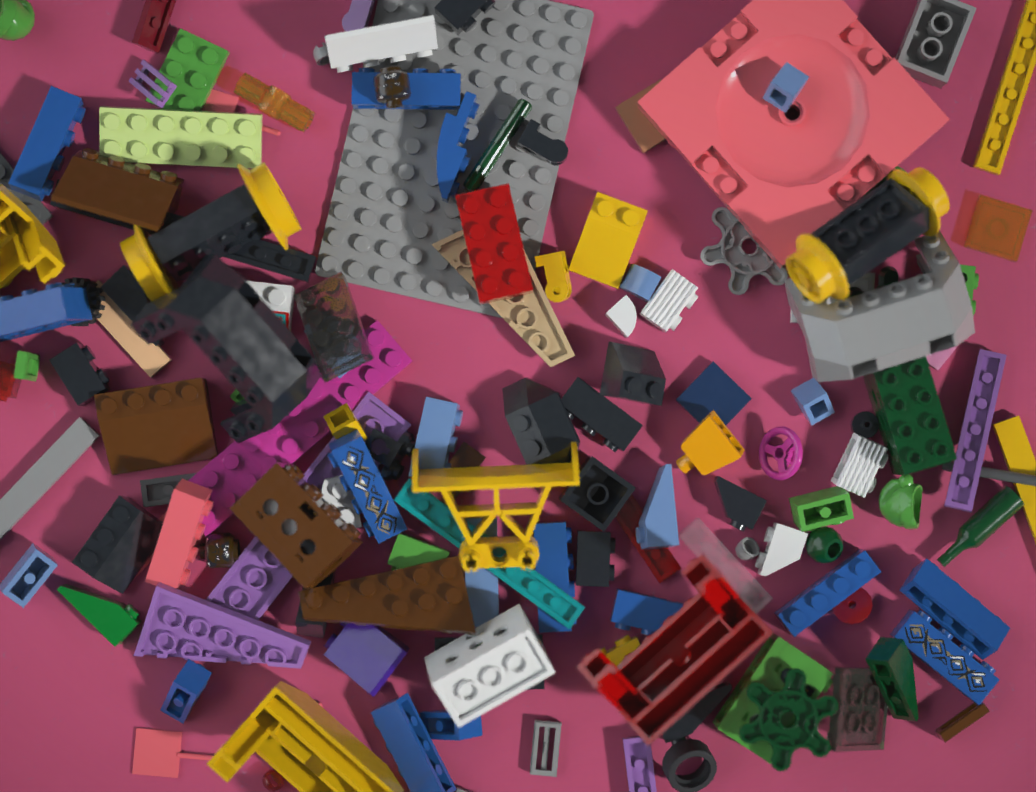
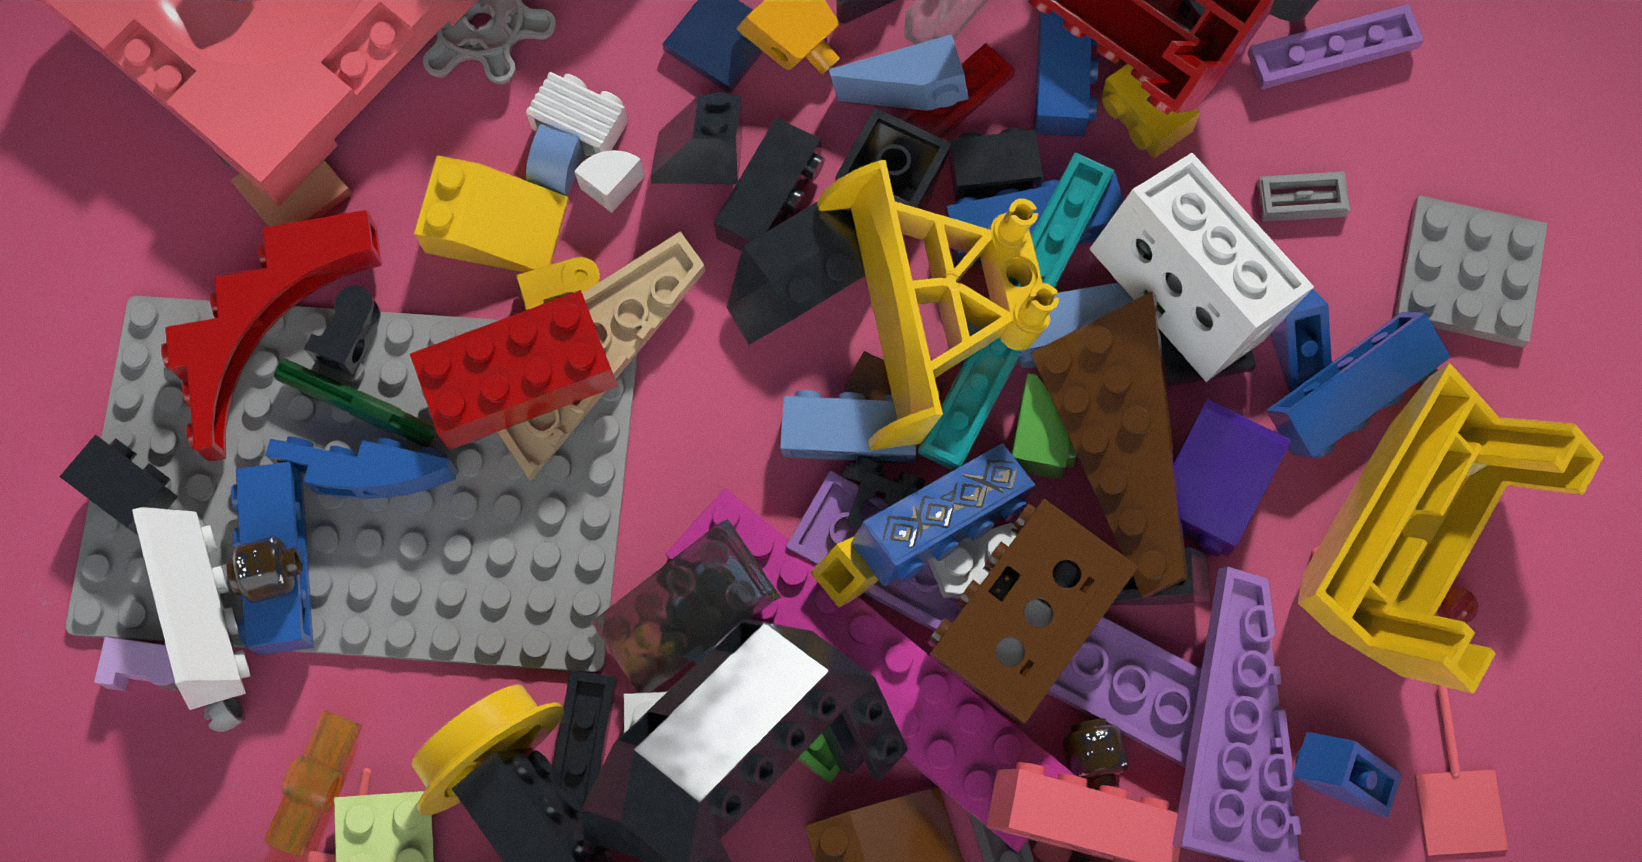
camera: 95 degrees left, 15 degrees down
(568, 84) = (247, 304): none -> red arch

